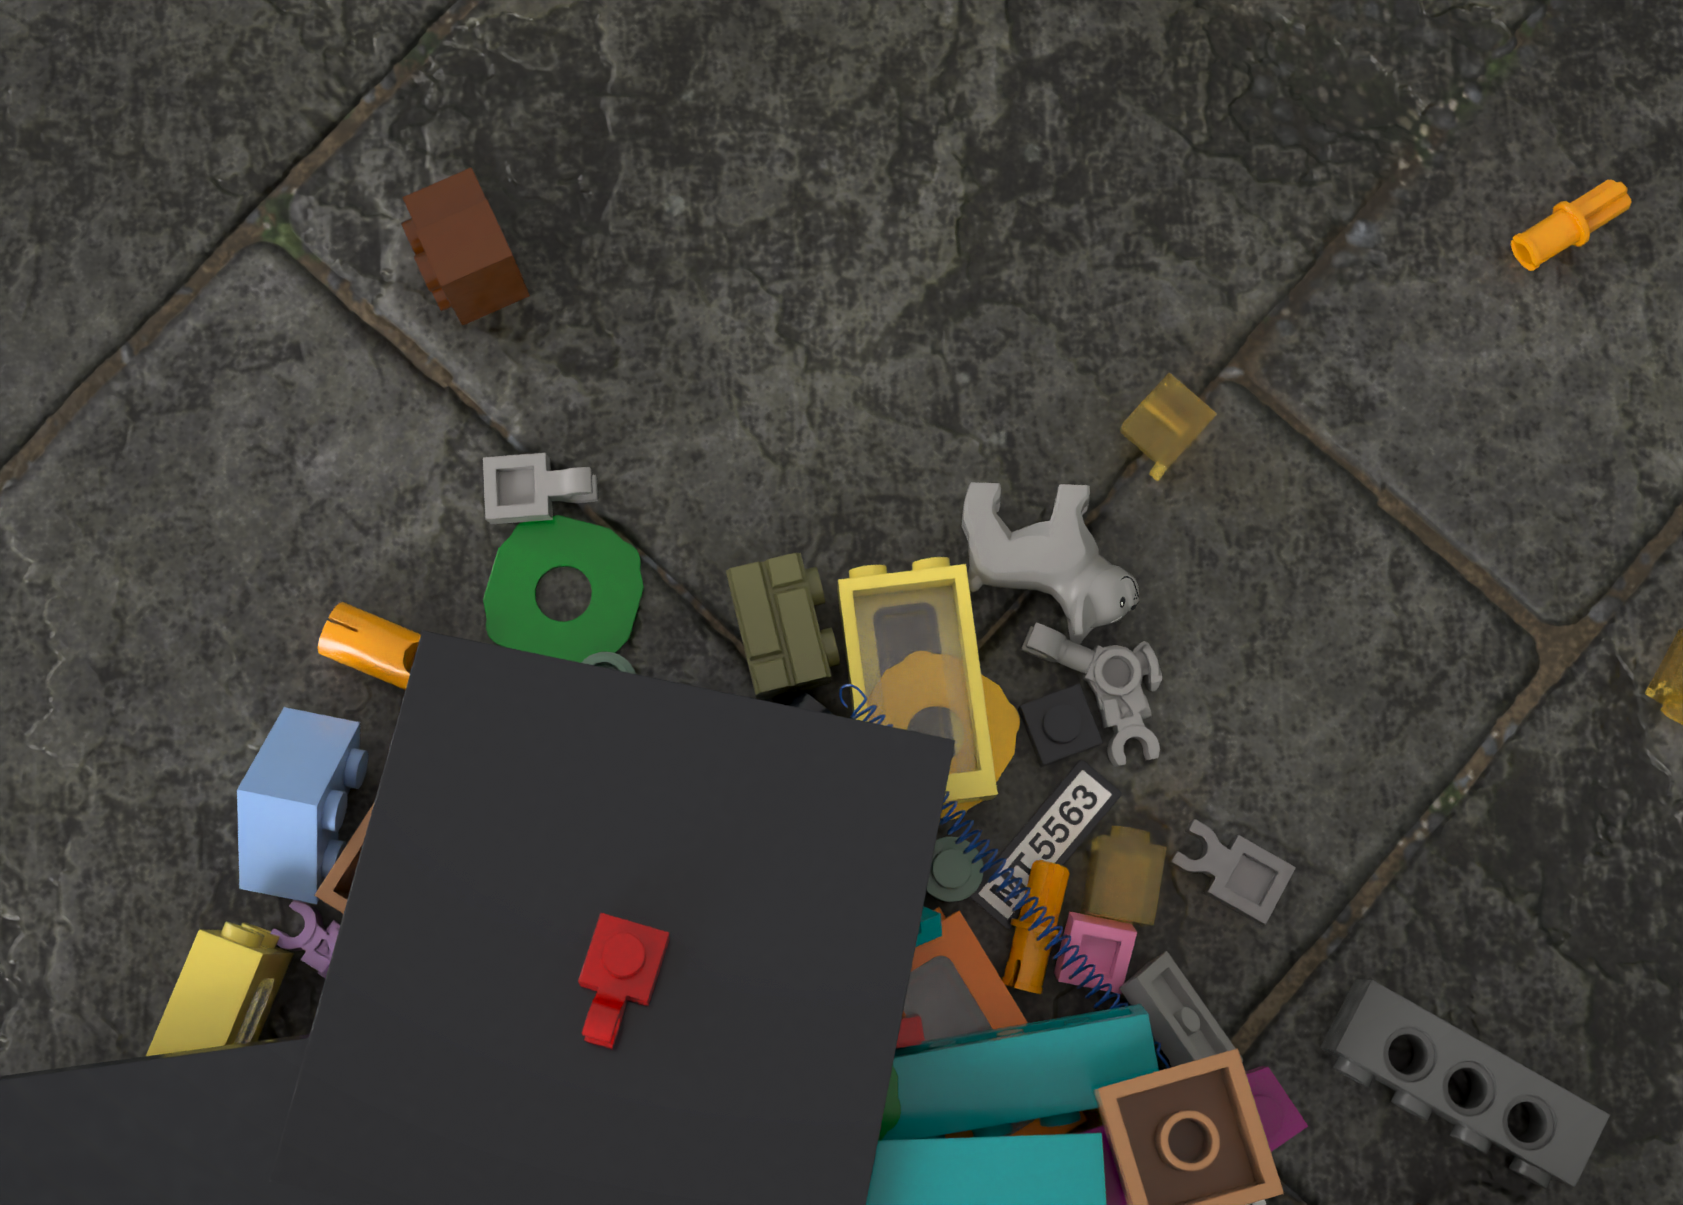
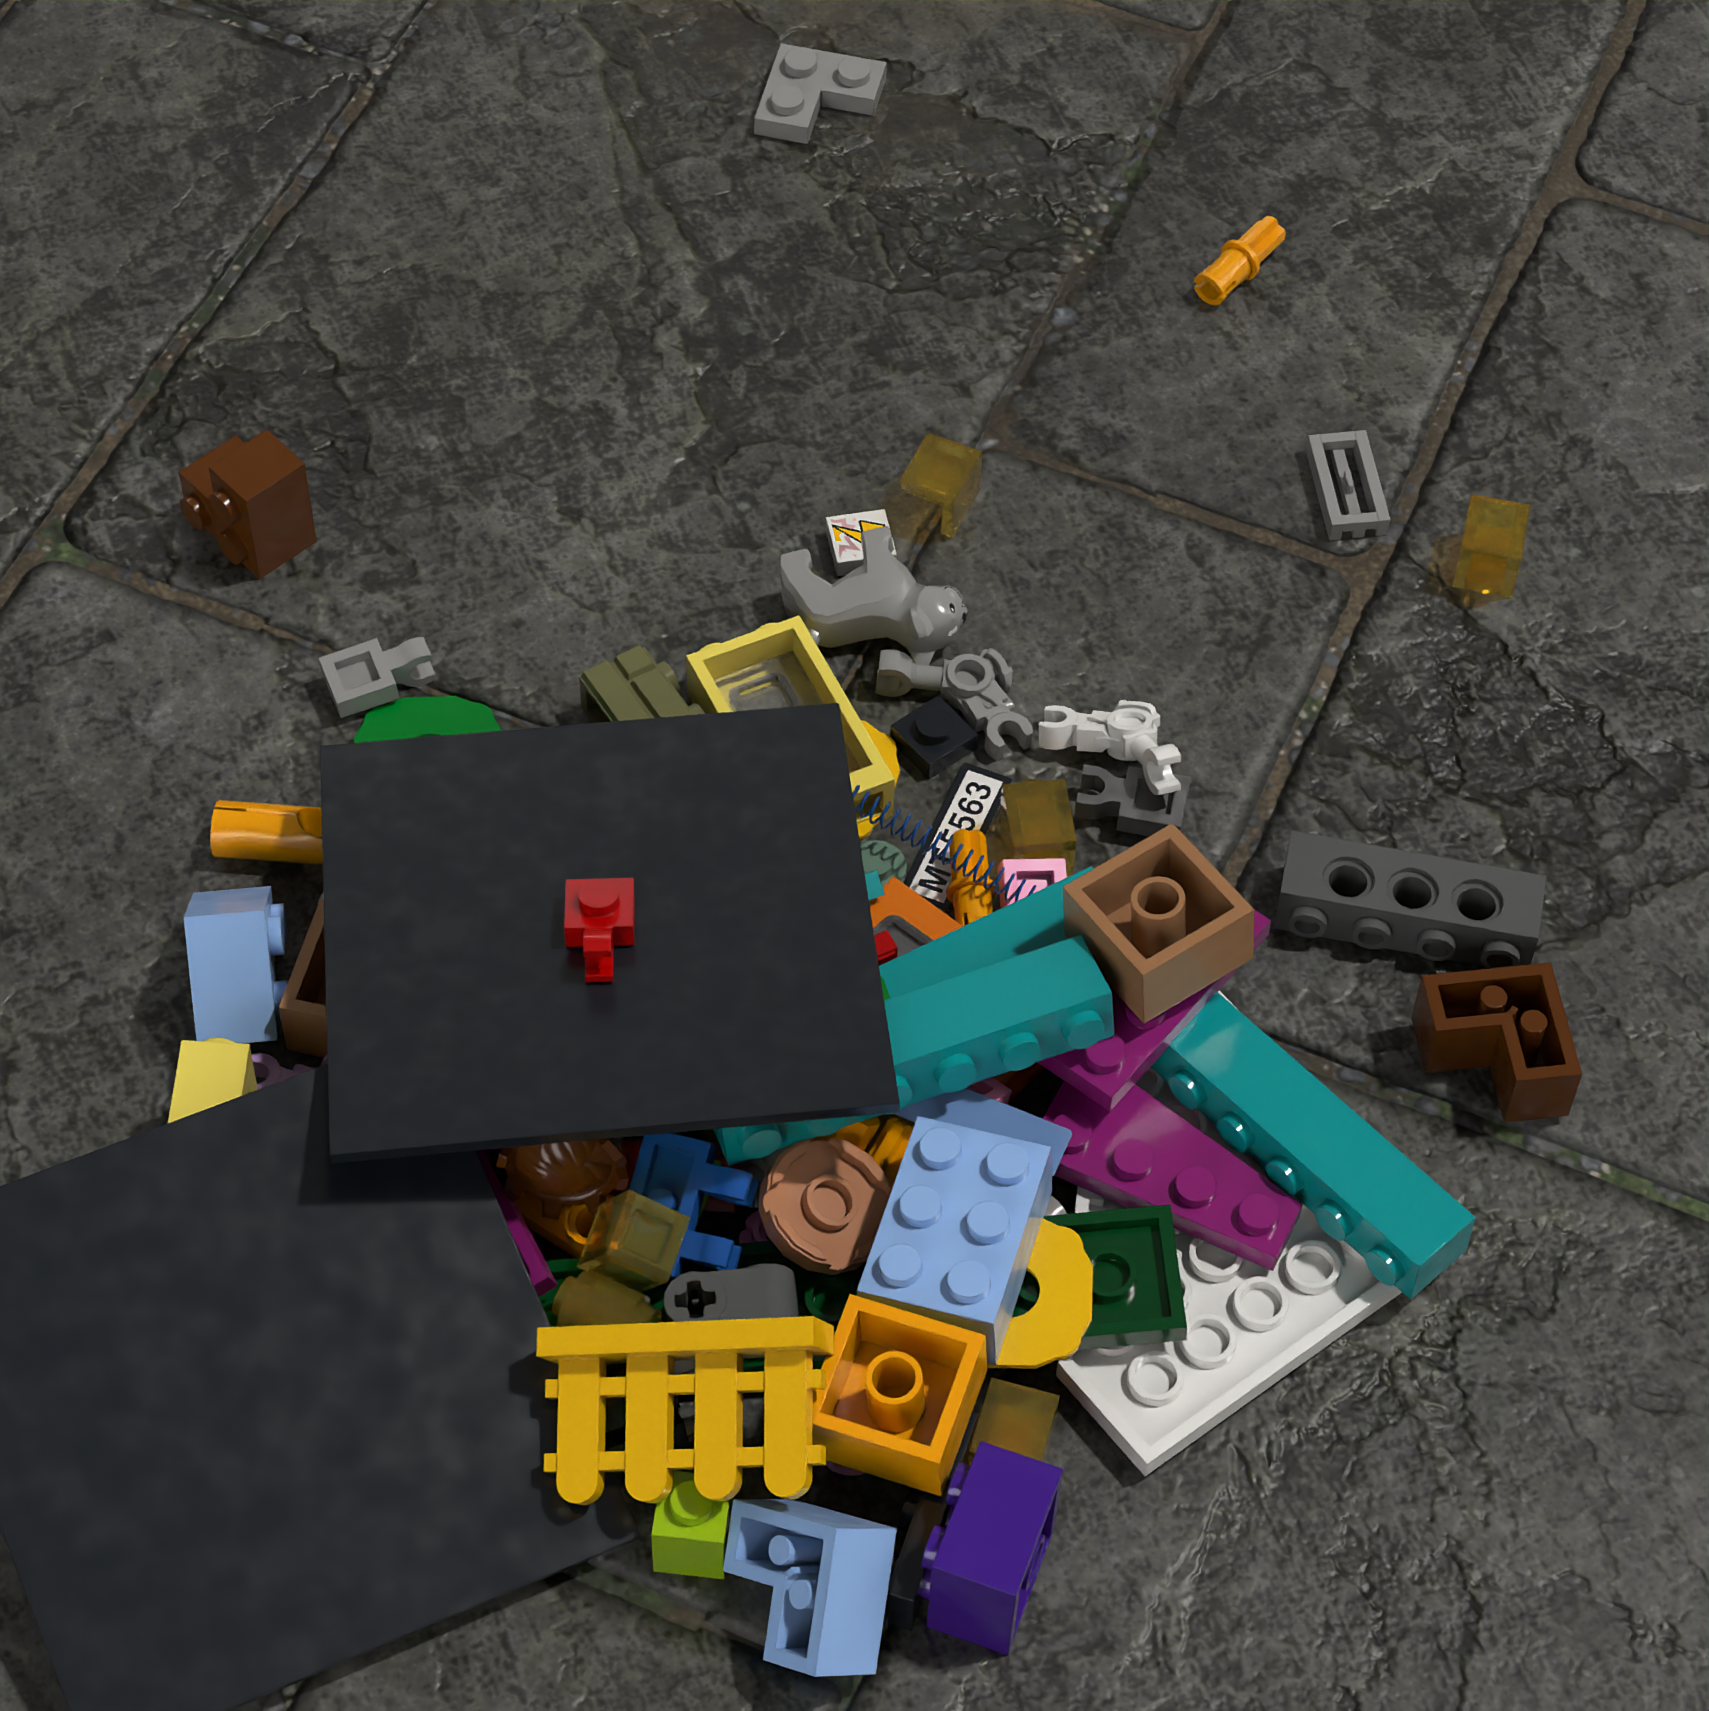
camera: 15 degrees left, 25 degrees down
(1062, 460) = (845, 537): none -> white tile
(1248, 790) = (1126, 733): none -> white piece
(1606, 547) = (1354, 520): none -> light grey tile

